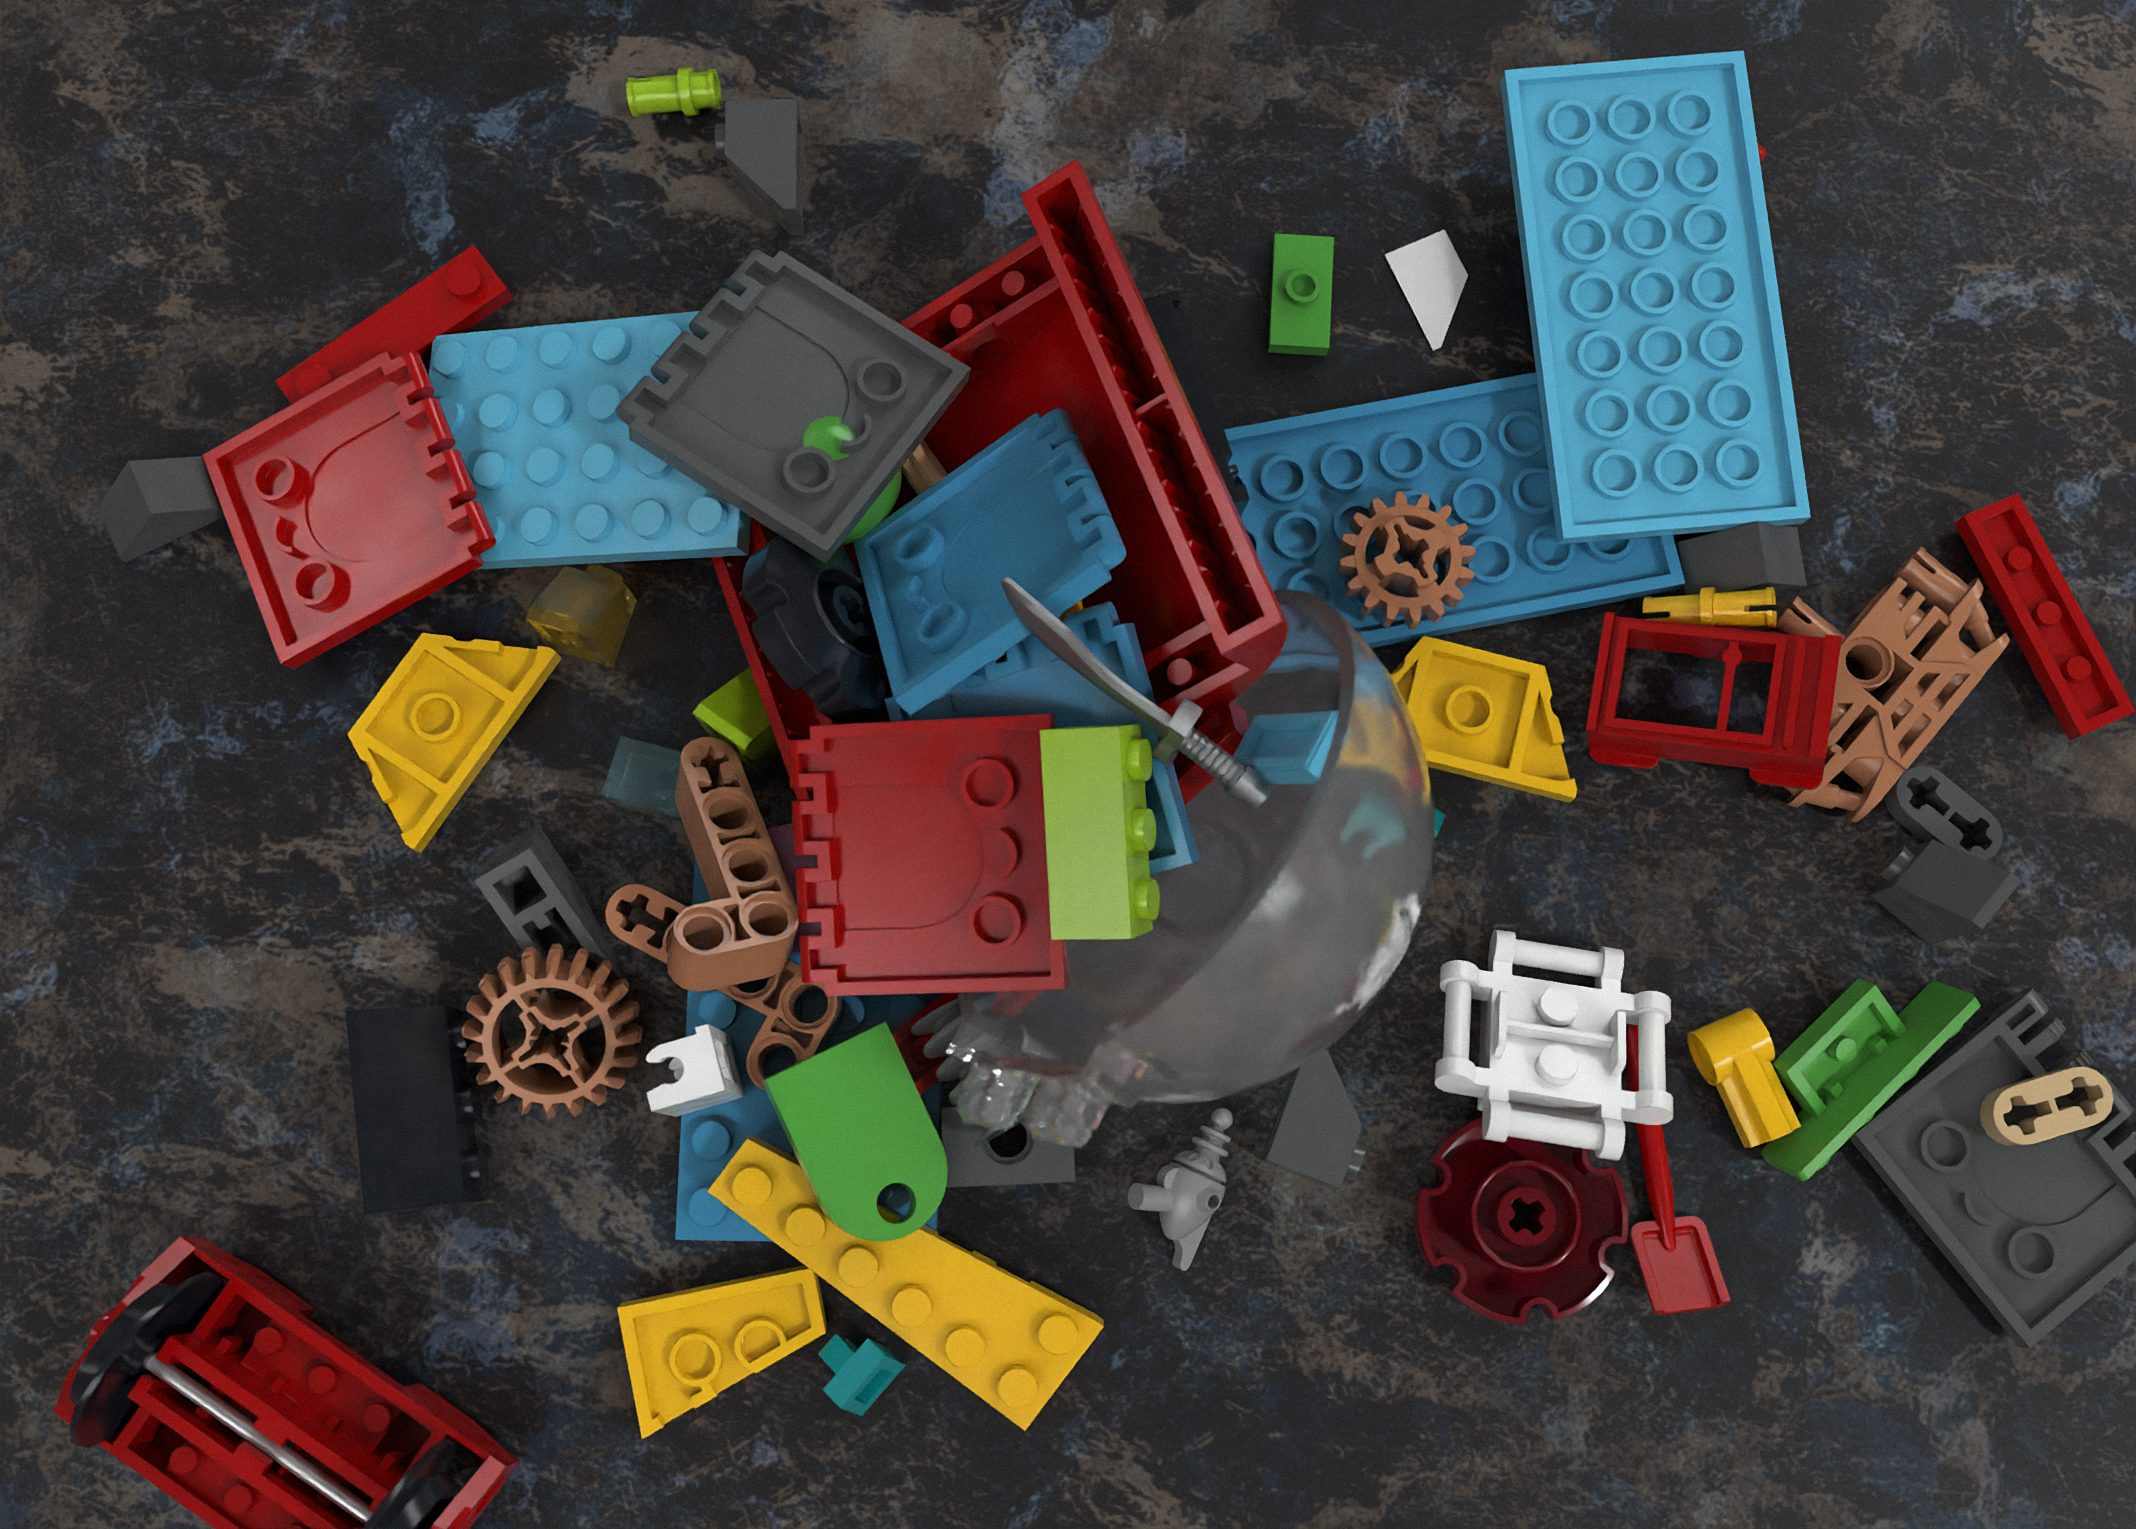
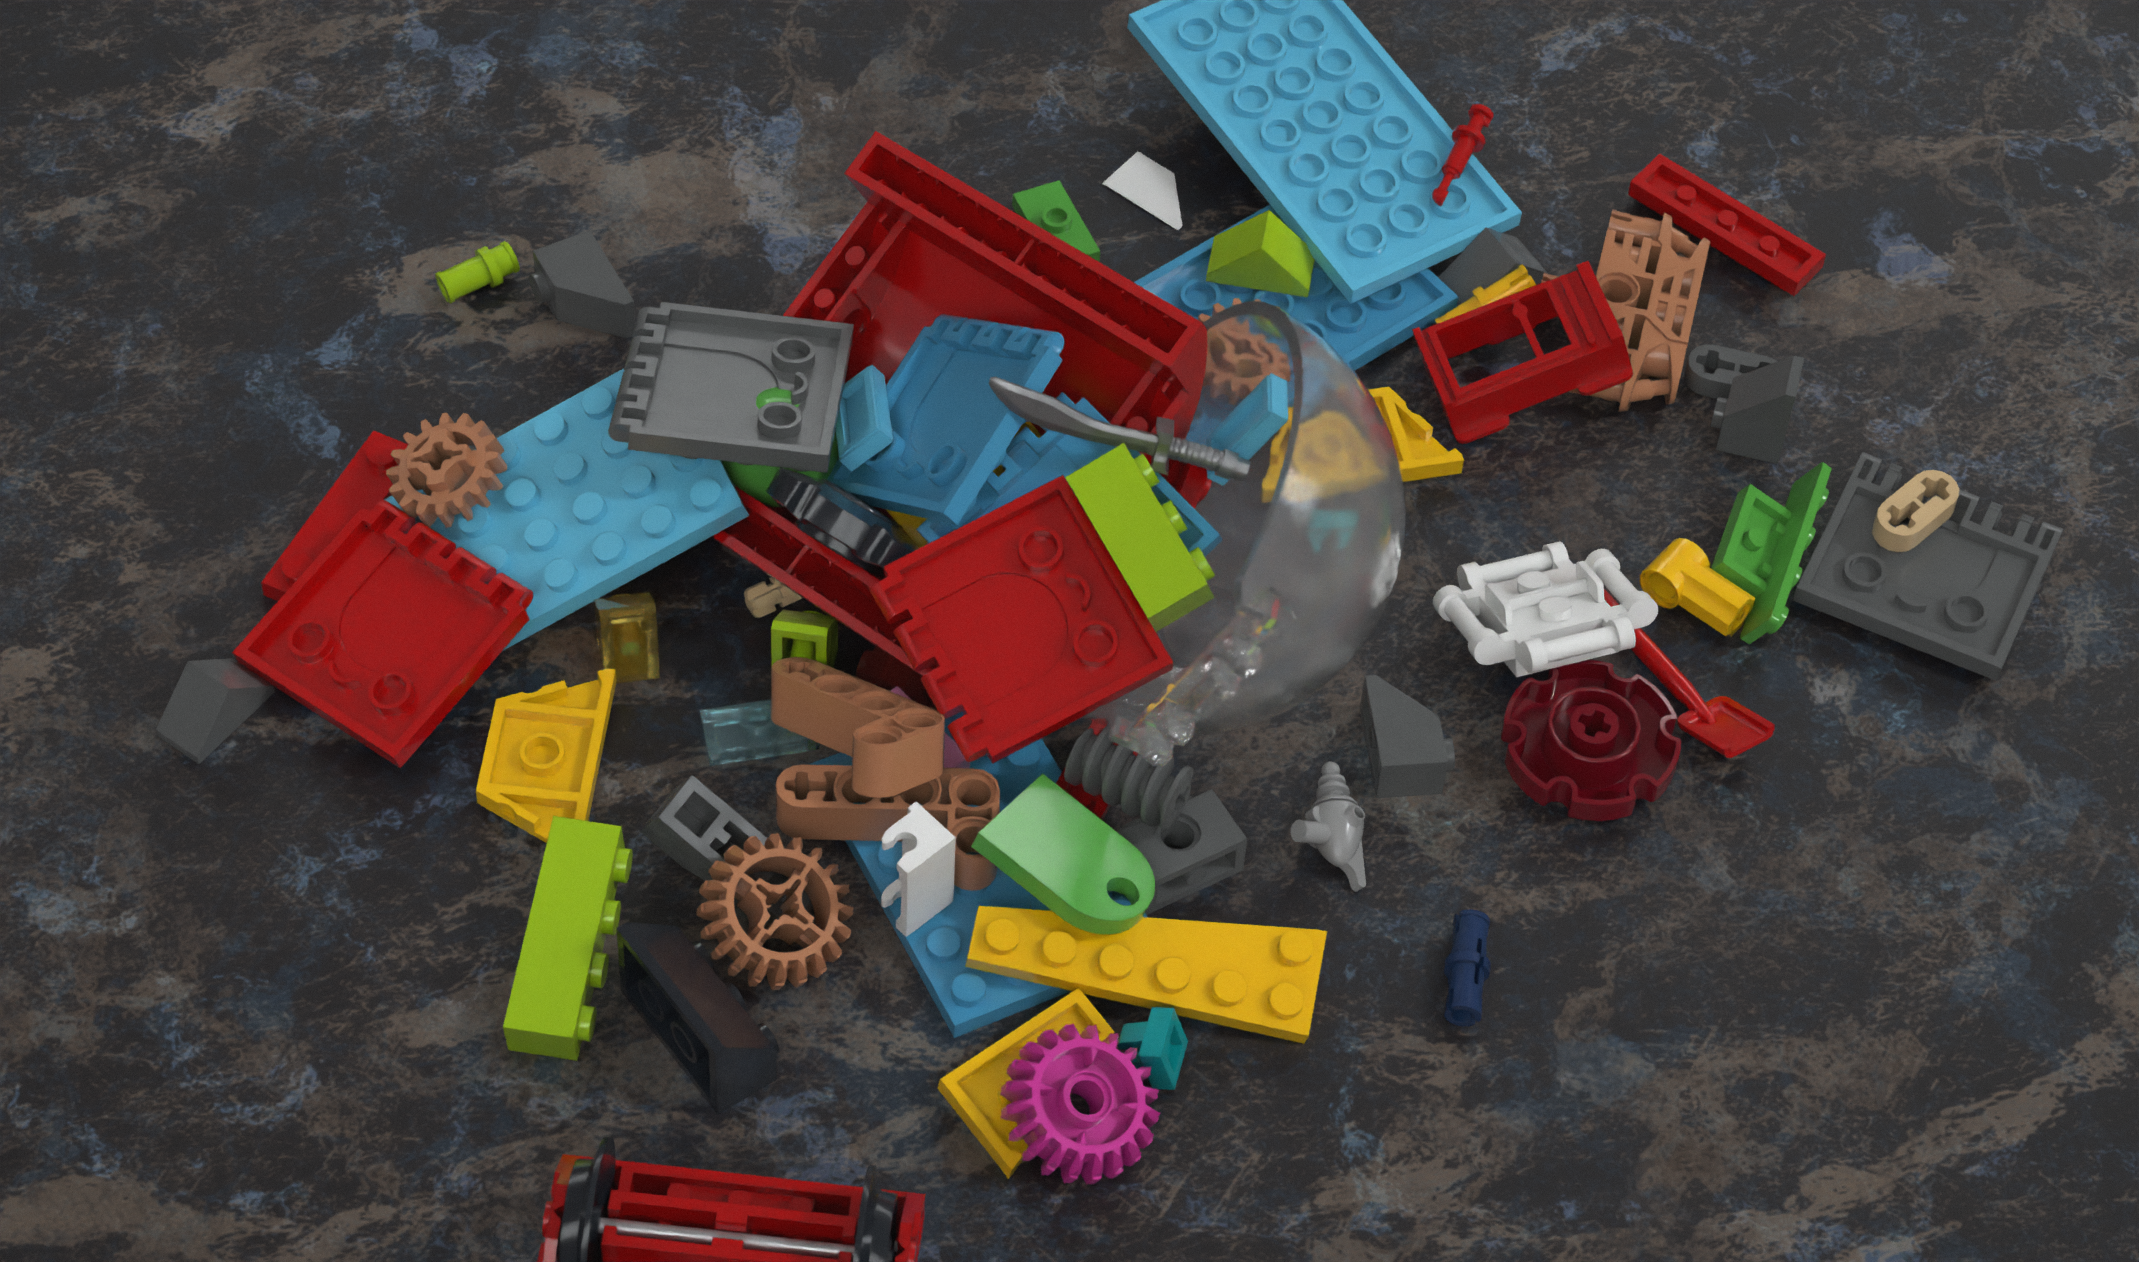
camera: 30 degrees left, 25 degrees down
(336, 960) = (566, 939): none -> lime brick
(483, 348) = (446, 470): none -> nougat gear
(728, 1454) = (1051, 1123): none -> dark pink gear
(920, 492) = (863, 418): none -> medium azure tile
(1235, 1428) = (1467, 968): none -> dark blue pin
(1490, 444) = (1261, 257): none -> lime slope
(1796, 403) = (1467, 140): none -> red piece

